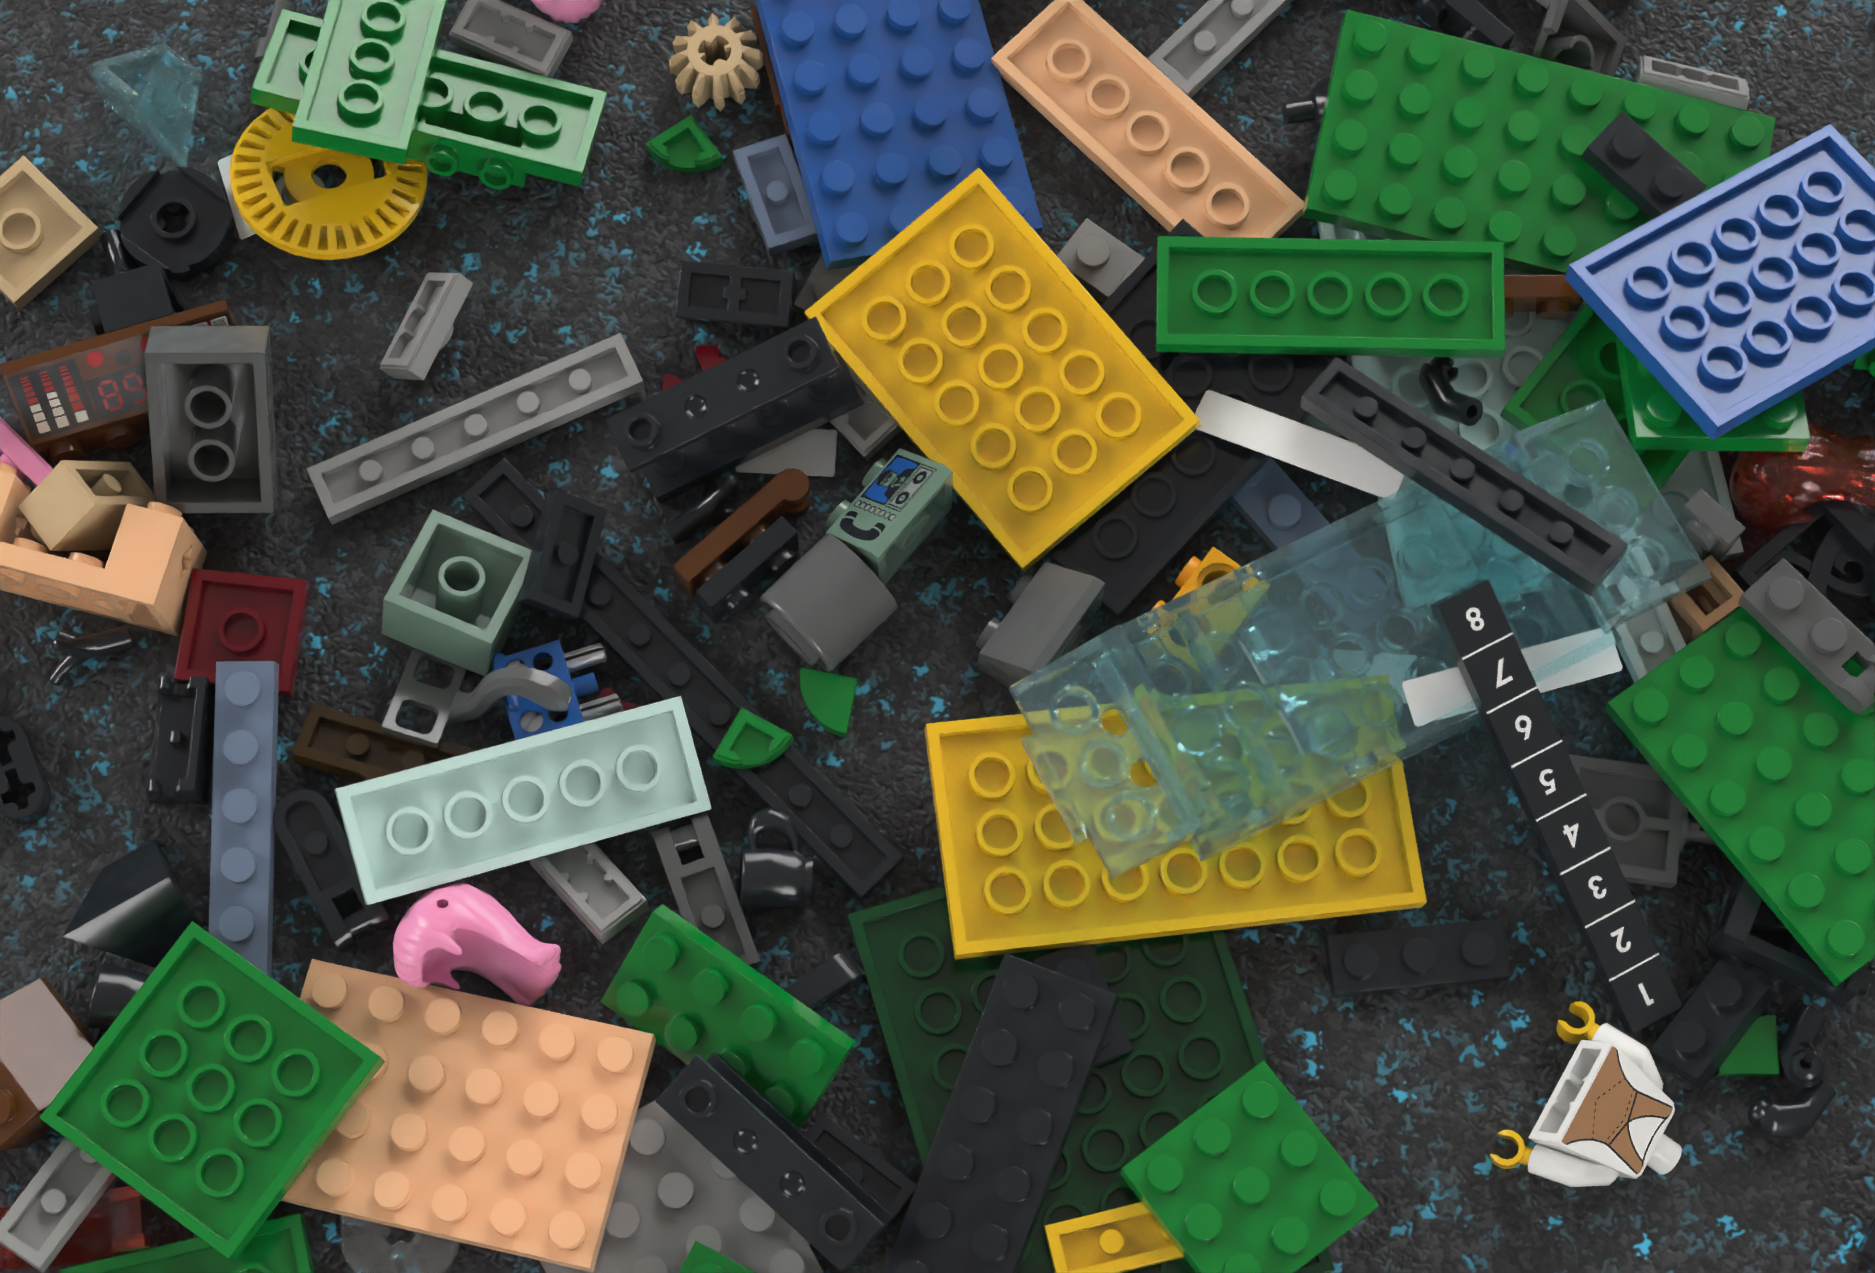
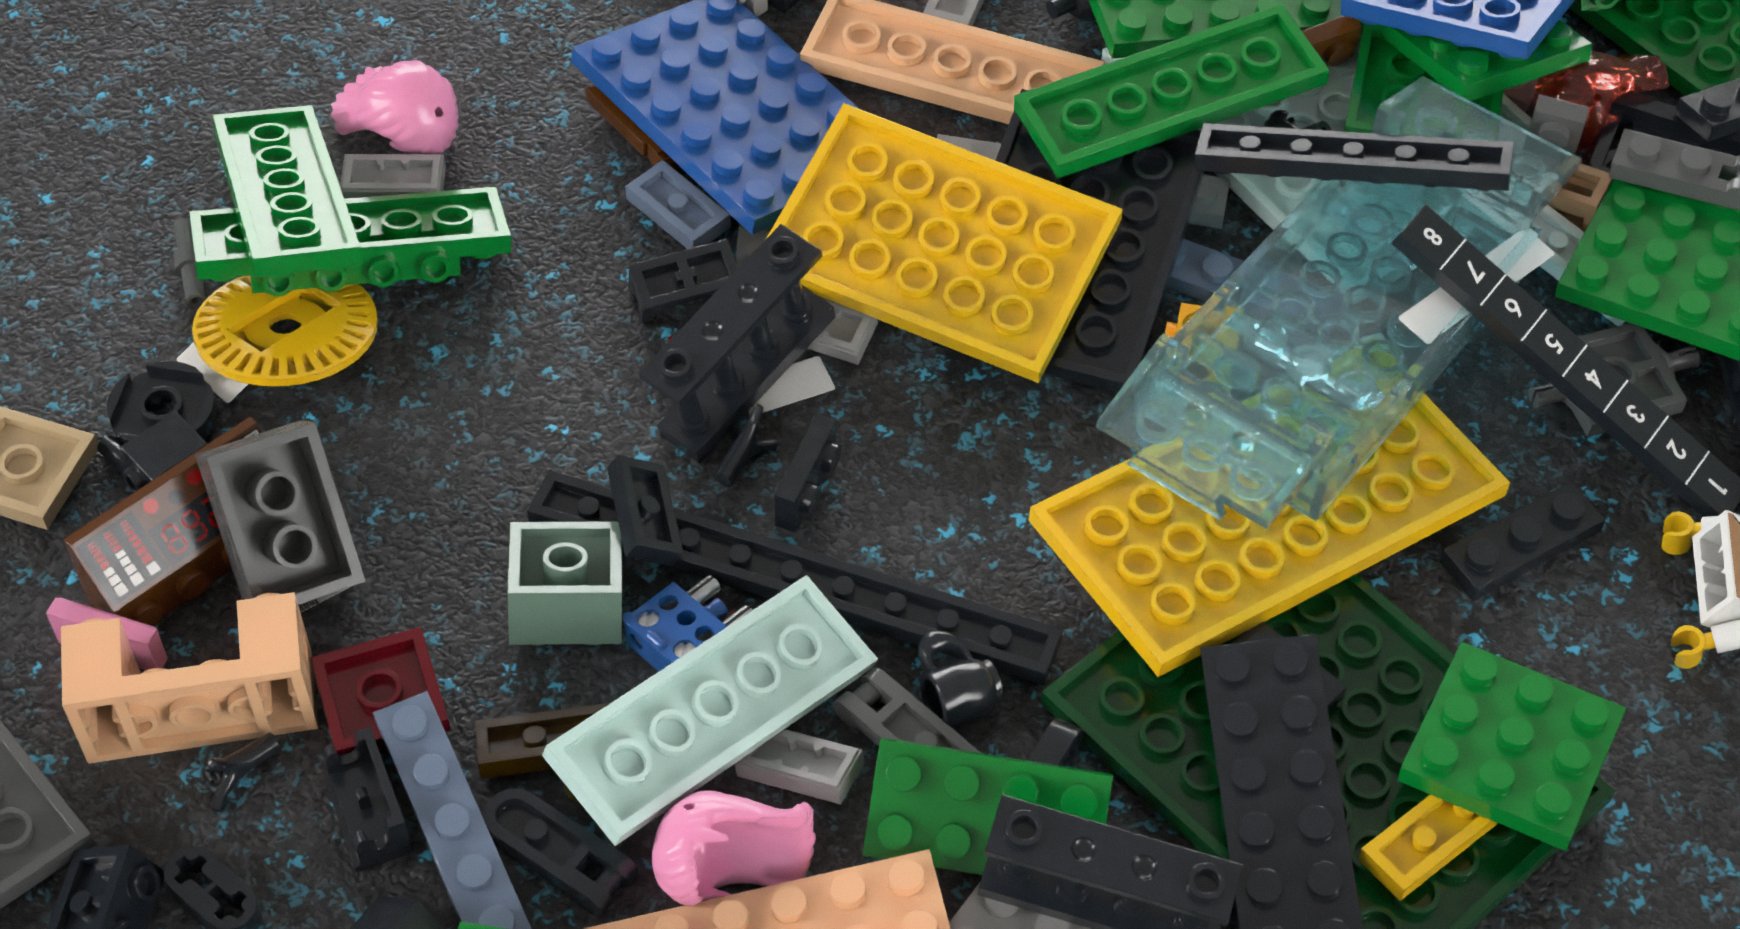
camera: 25 degrees left, 20 degrees down
(83, 504) = (187, 630): tan brick -> none
(153, 94) = (93, 330): clear light blue slope -> none
(426, 326) = (428, 402): light grey plate -> none
(457, 705) = (672, 608): dark grey piece -> none
(475, 428) = (508, 464): light grey plate -> none
(685, 148) = (581, 206): green tile -> none
(730, 59) = (576, 134): tan gear -> none
(751, 742) = (885, 591): green tile -> none
(783, 496) = (780, 448): reddish brown plate -> none
(827, 603) = (891, 462): dark grey piece -> none
(829, 699) = (927, 545): green tile -> none
(893, 511) = (904, 384): sand green slope -> none
(1044, 623) = (1078, 393): dark grey slope -> none
(1296, 444) = (1210, 199): white sticker -> none

